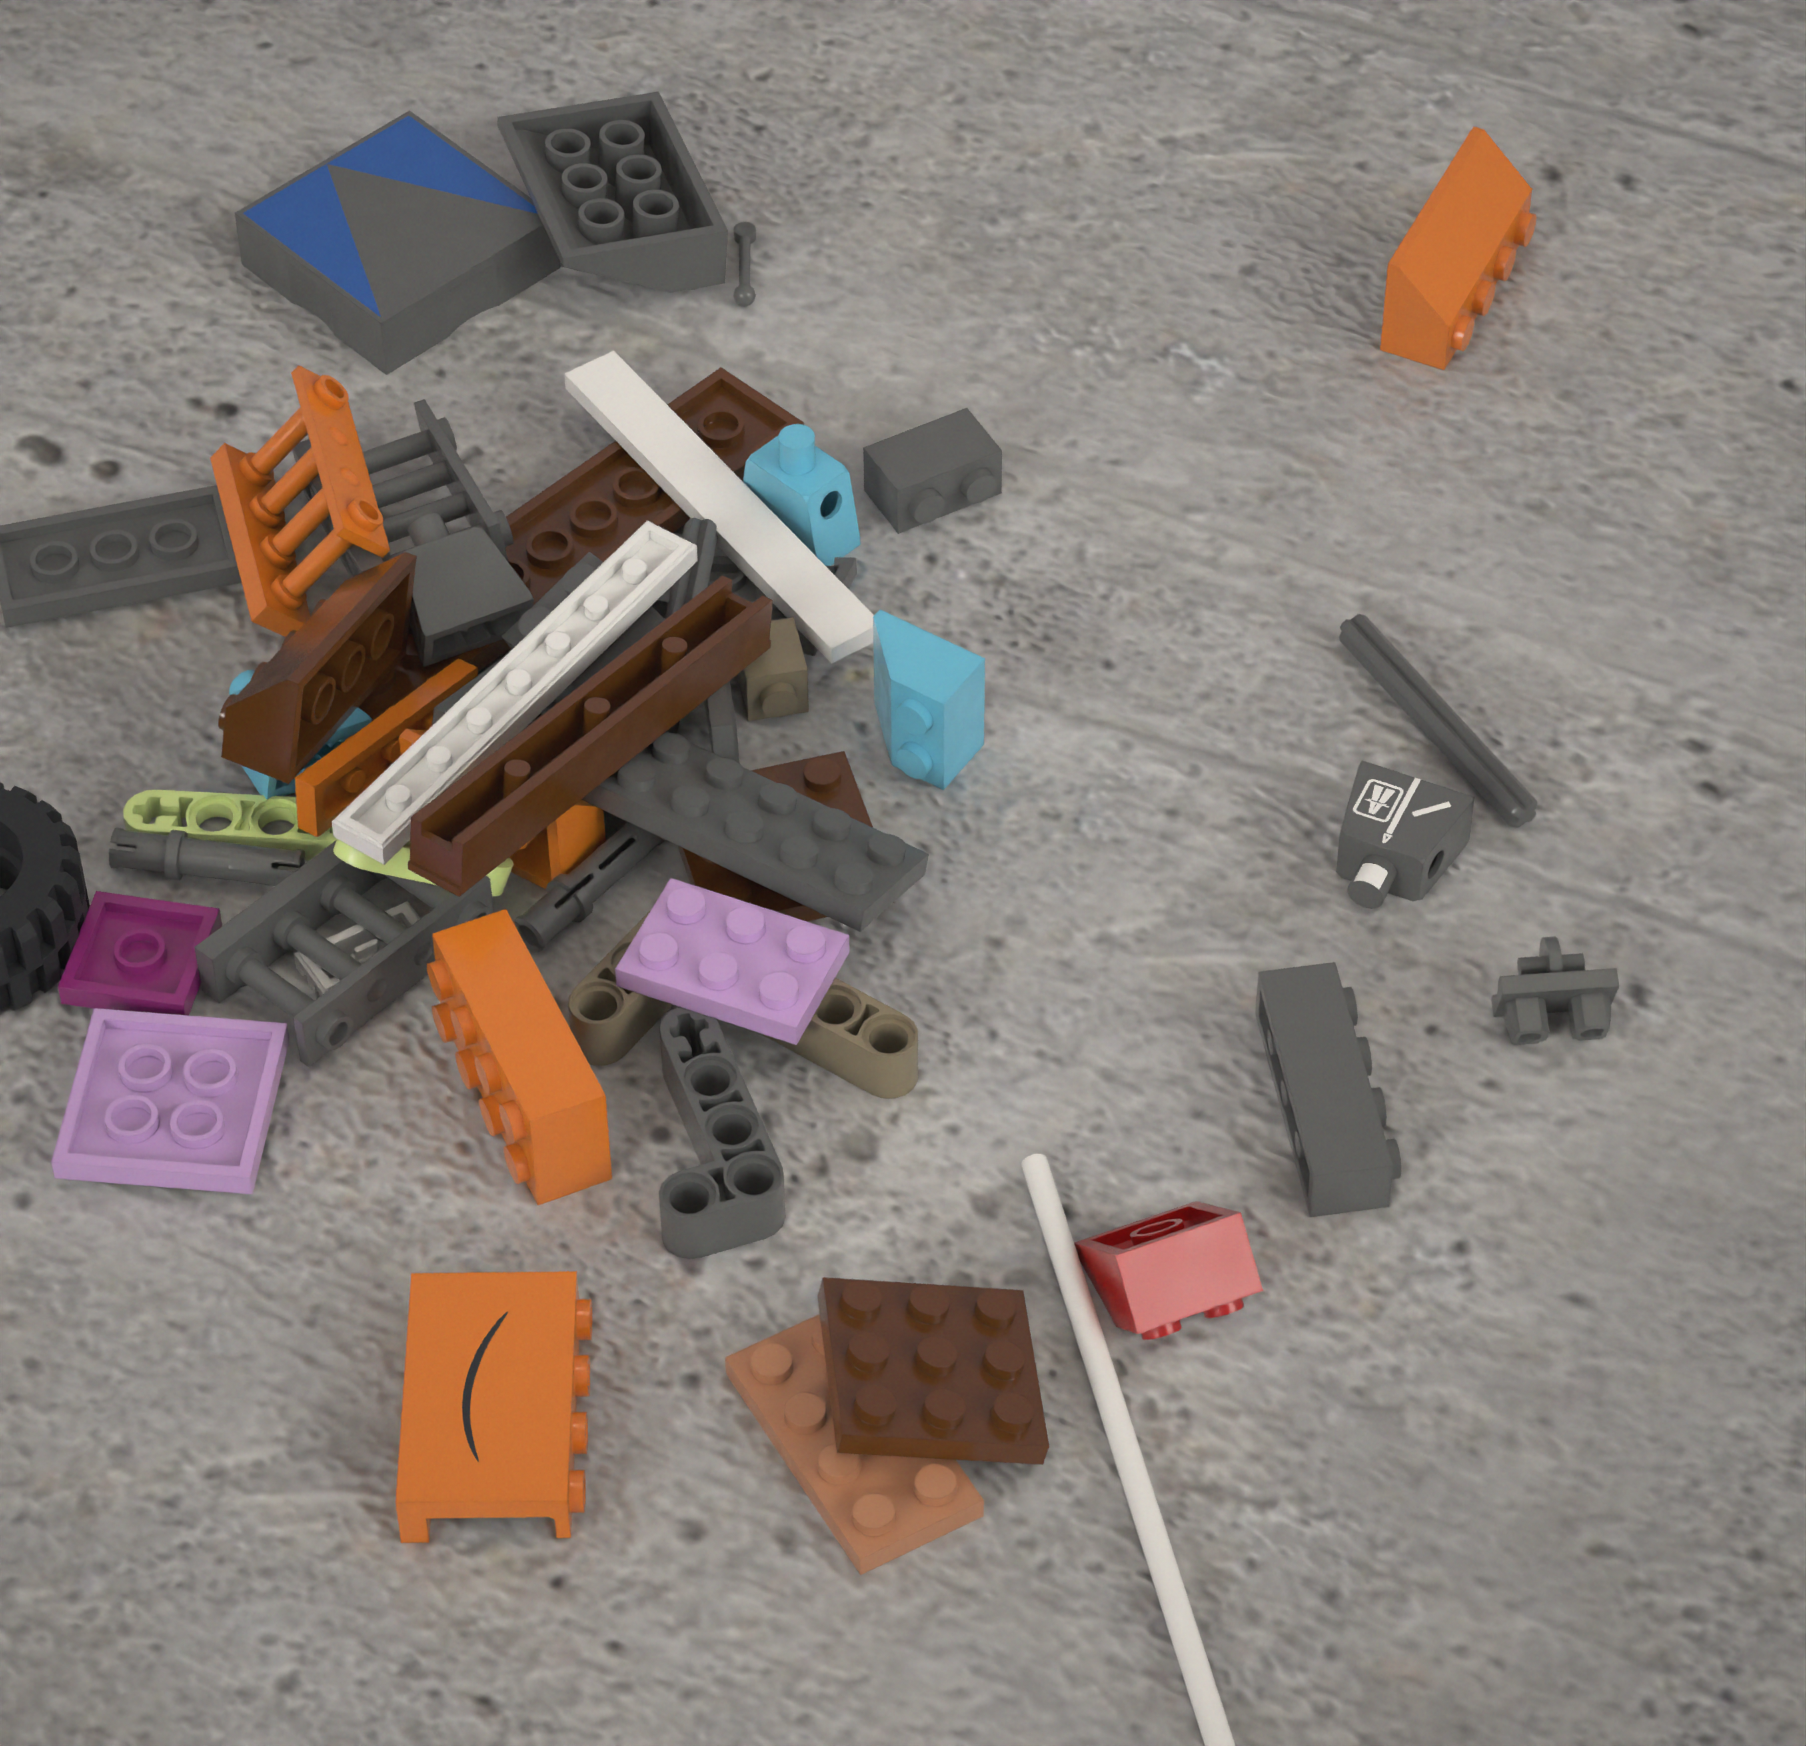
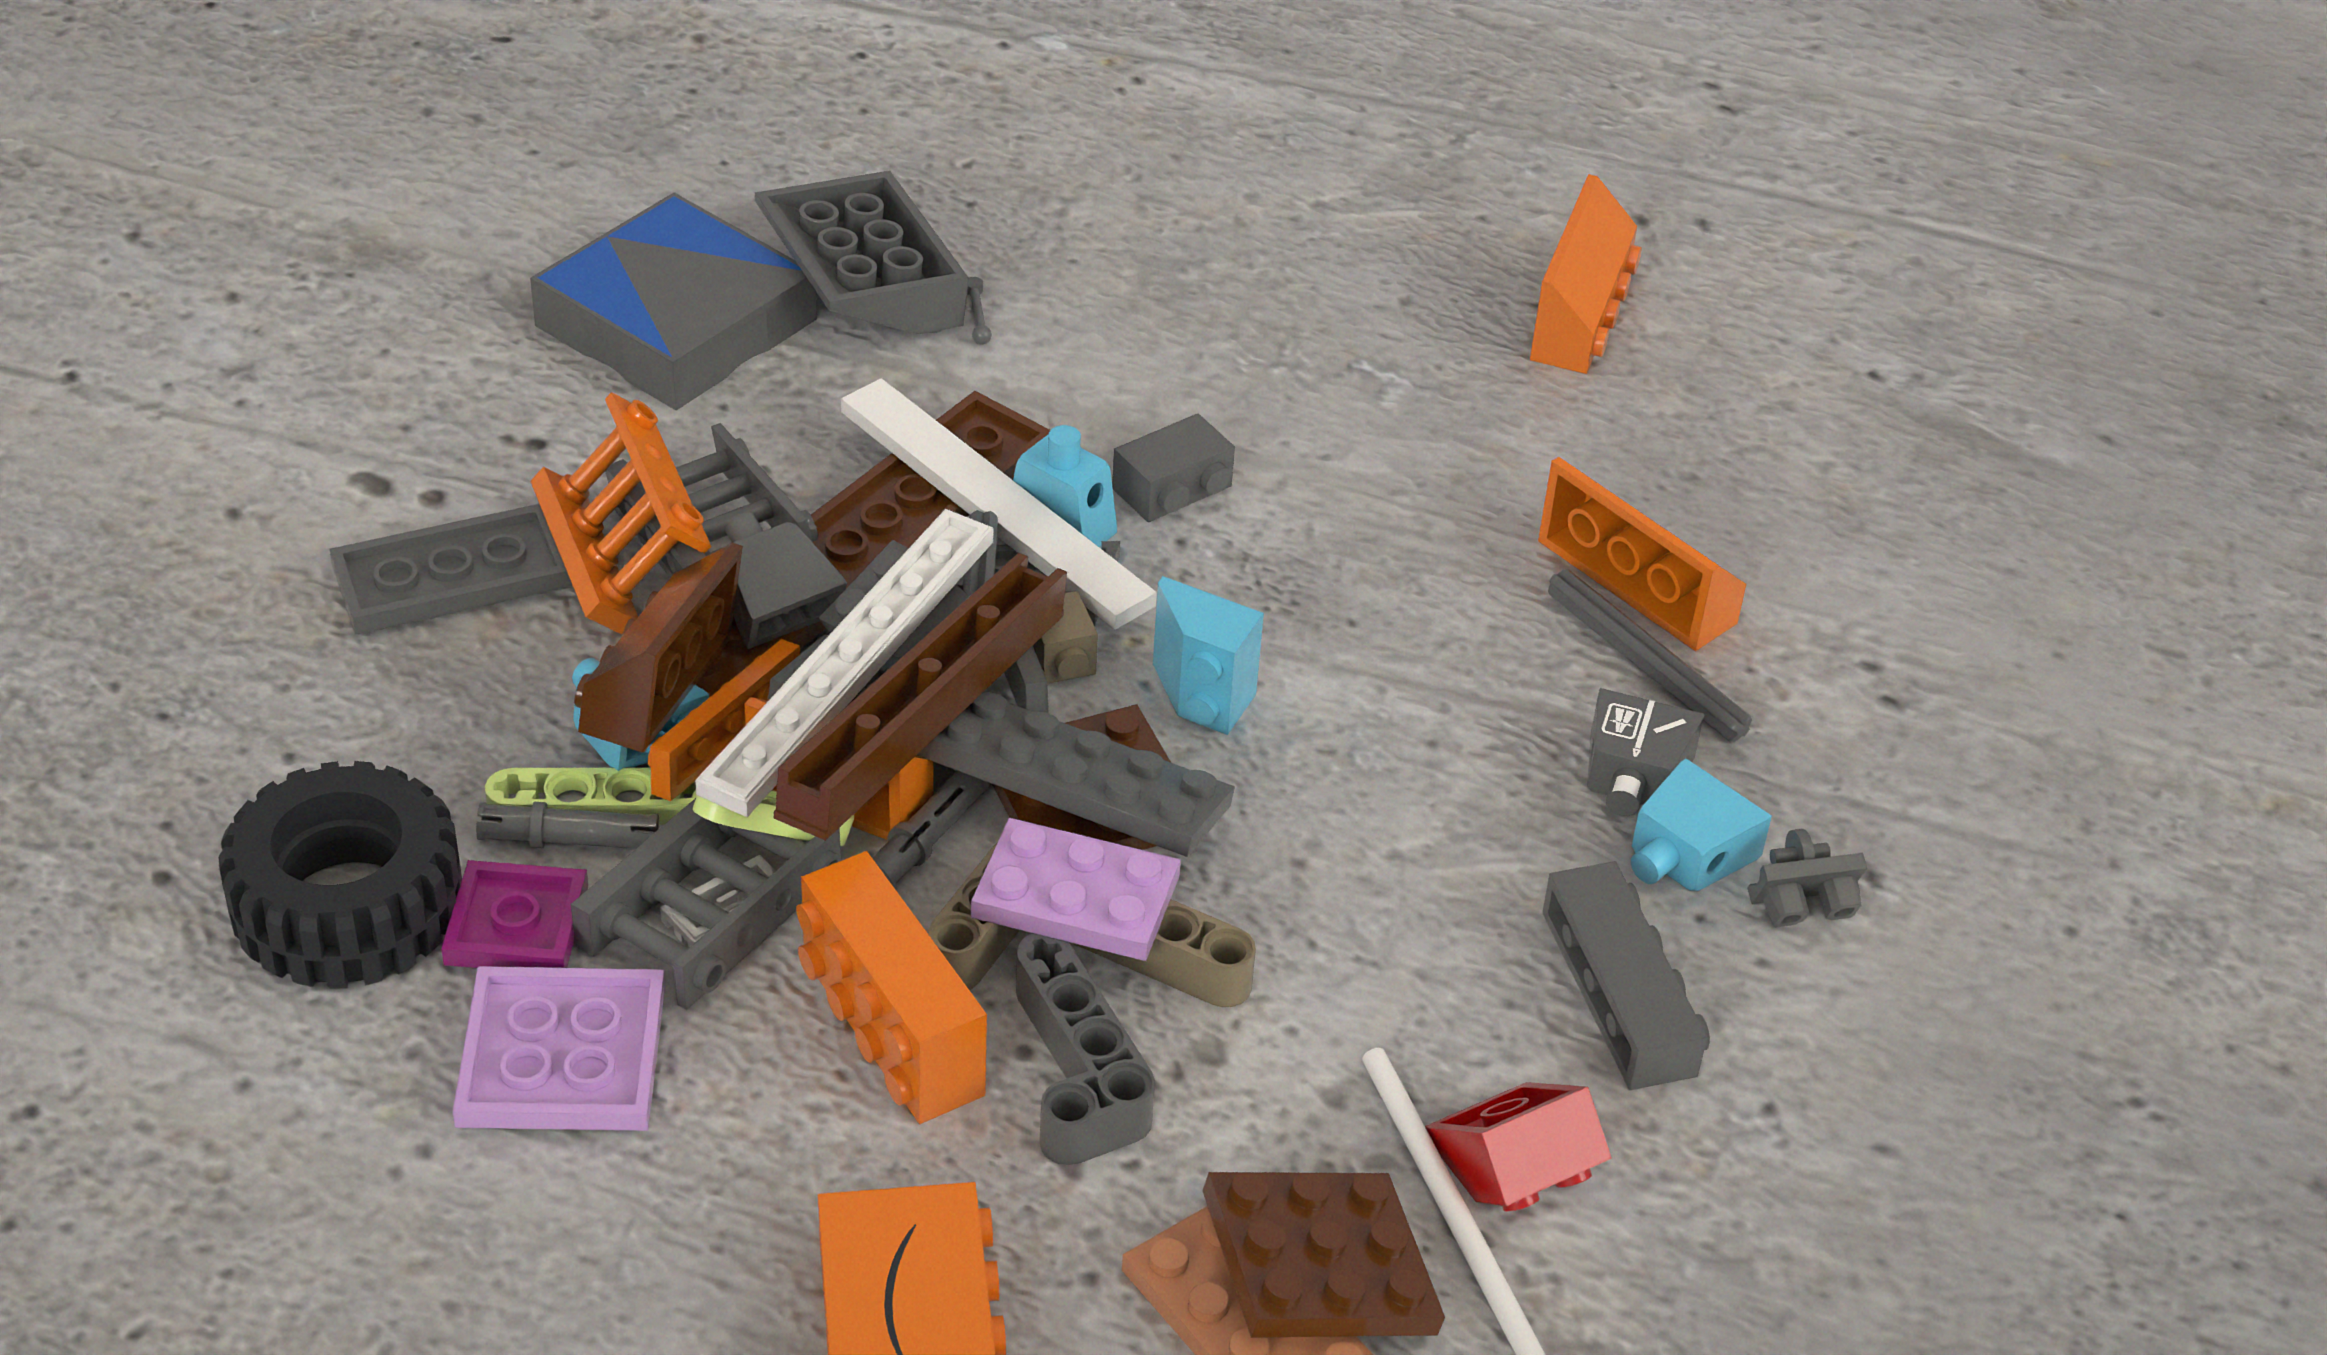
camera: 10 degrees left, 5 degrees down
(1441, 930) = (1696, 830): none -> medium azure torso
(1446, 604) = (1638, 558): none -> orange slope

